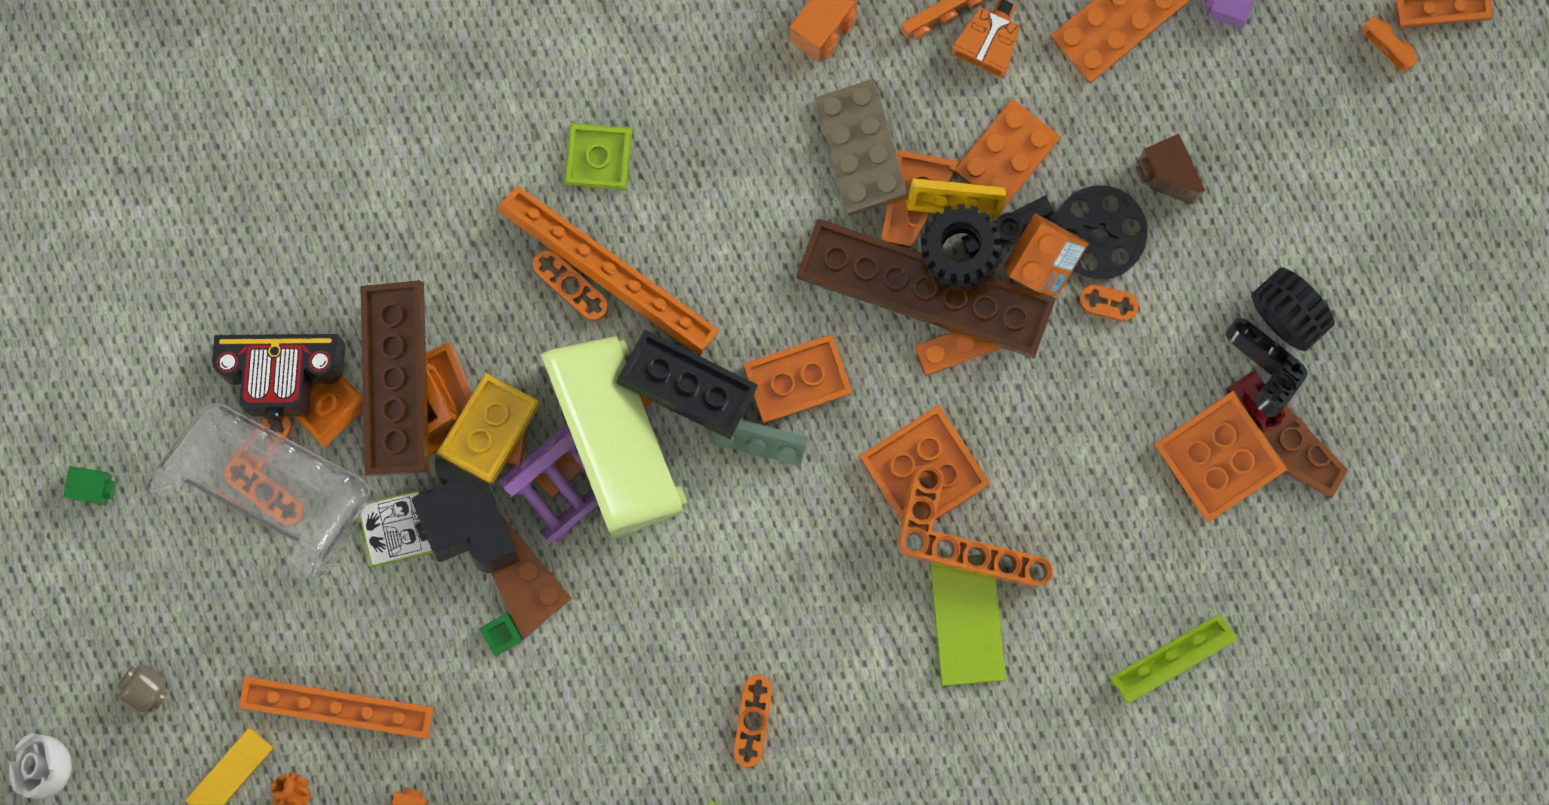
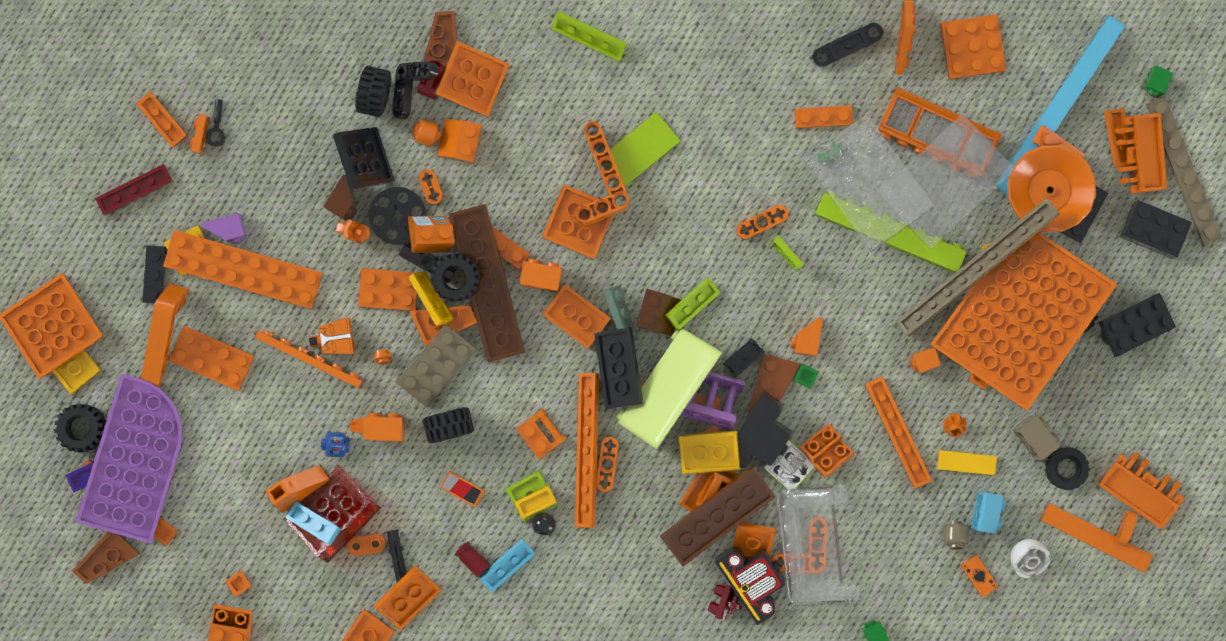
camera: 125 degrees left, 5 degrees up
(67, 683) = (979, 575): none -> orange tile
(141, 753) = (987, 512): none -> medium azure slope
(271, 316) = (721, 609): none -> dark red hips
(380, 592) = (826, 451): none -> orange slope
(529, 62) = (507, 565): none -> medium azure plate
(549, 146) = (544, 524): none -> black piece
(549, 671) = (808, 339): none -> orange slope
(569, 22) = (472, 559): none -> dark red piece
(584, 566) = (743, 357): none -> black hinge
(586, 155) = (535, 502): none -> yellow tile
(670, 72) = (462, 489): none -> slope
(672, 214) = (535, 437): none -> orange plate
(684, 722) = (788, 255): none -> lime tile
(706, 547) = (692, 303): none -> lime plate
(725, 493) = (654, 311): none -> reddish brown slope
(768, 106) = (448, 425): none -> black tyre
(884, 365) = (541, 276): none -> orange brick
(921, 84) = (382, 357): none -> orange plate
(1118, 157) = (353, 231): none -> orange hips
(1145, 384) = (460, 140): none -> orange slope
(1188, 345) = (426, 132): none -> orange head
(1209, 235) = (363, 158): none -> black plate
(1393, 80) = (217, 119): none -> black piece

